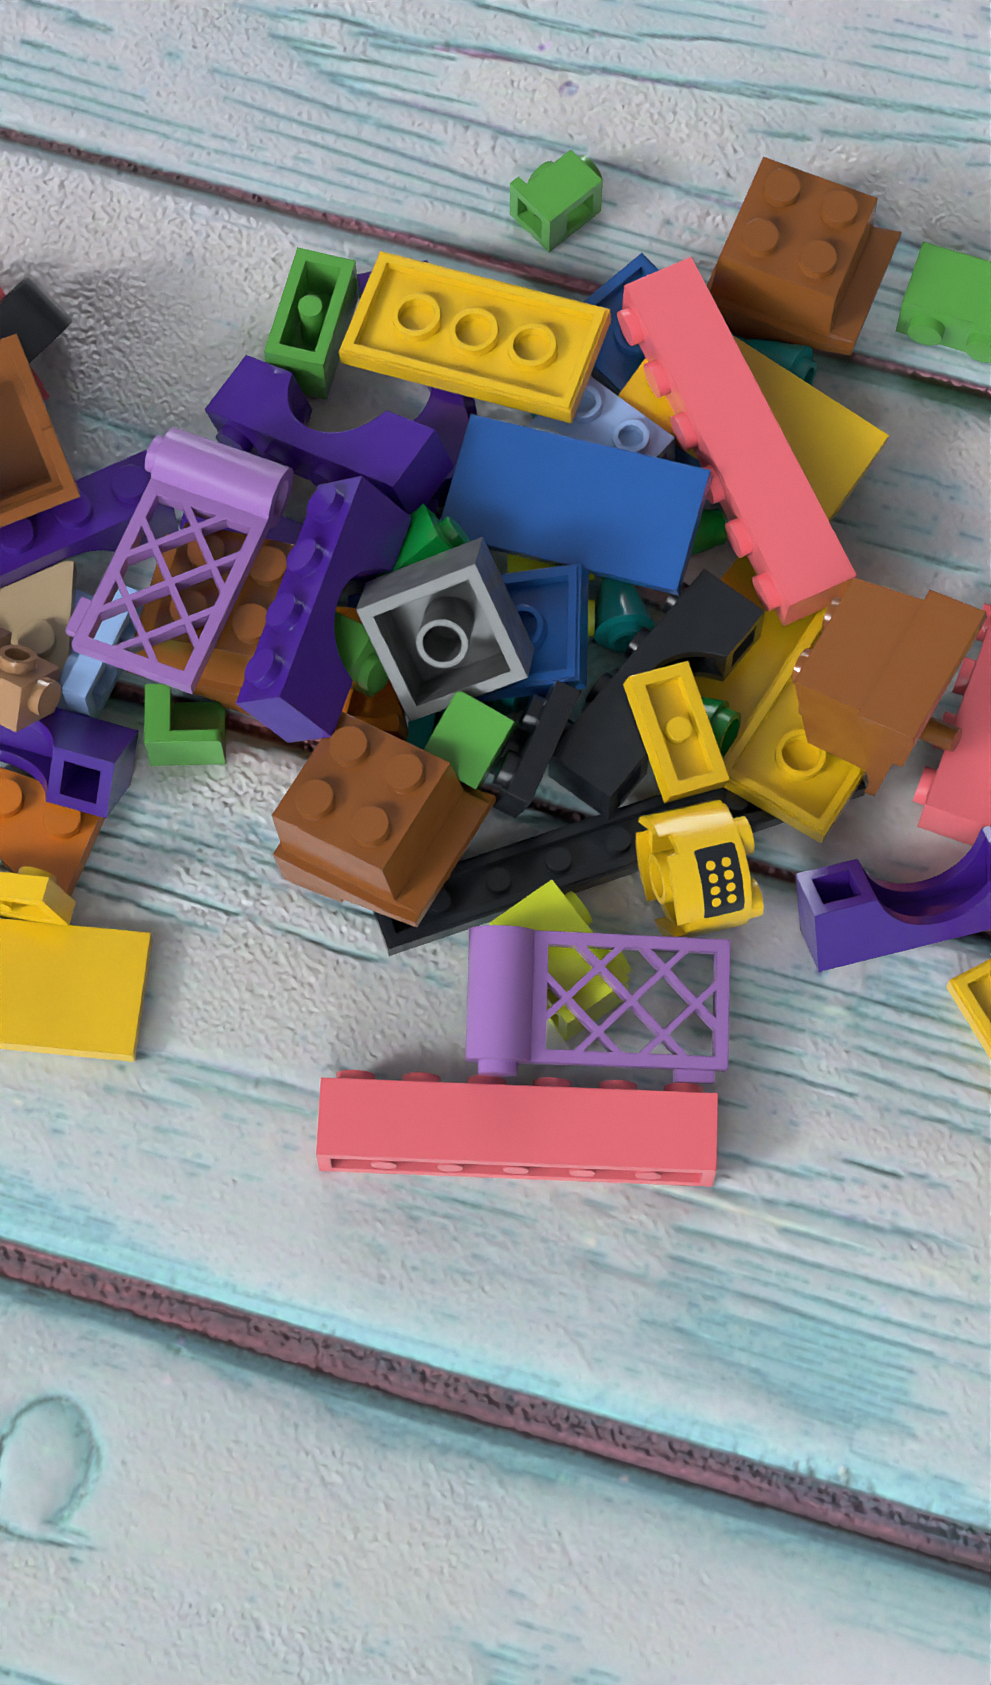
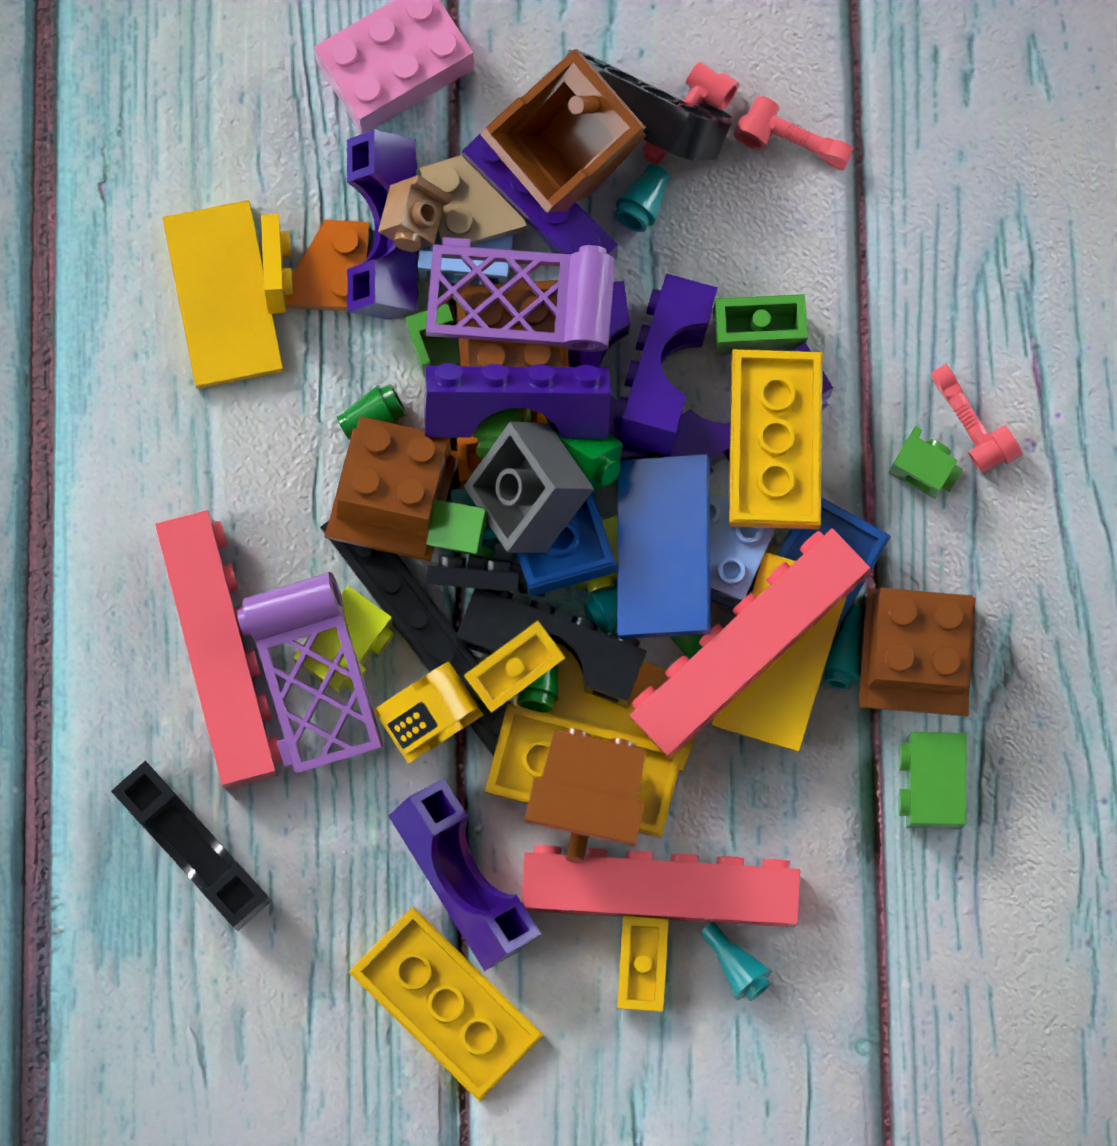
camera: 70 degrees right, 10 degrees up
(45, 253) = (761, 122): none -> coral brick
(92, 421) = (642, 200): none -> teal cone
(252, 833) = (377, 404): none -> green cone
(562, 122) = (990, 447): none -> coral brick
(821, 1228) = (191, 846): none -> black arch

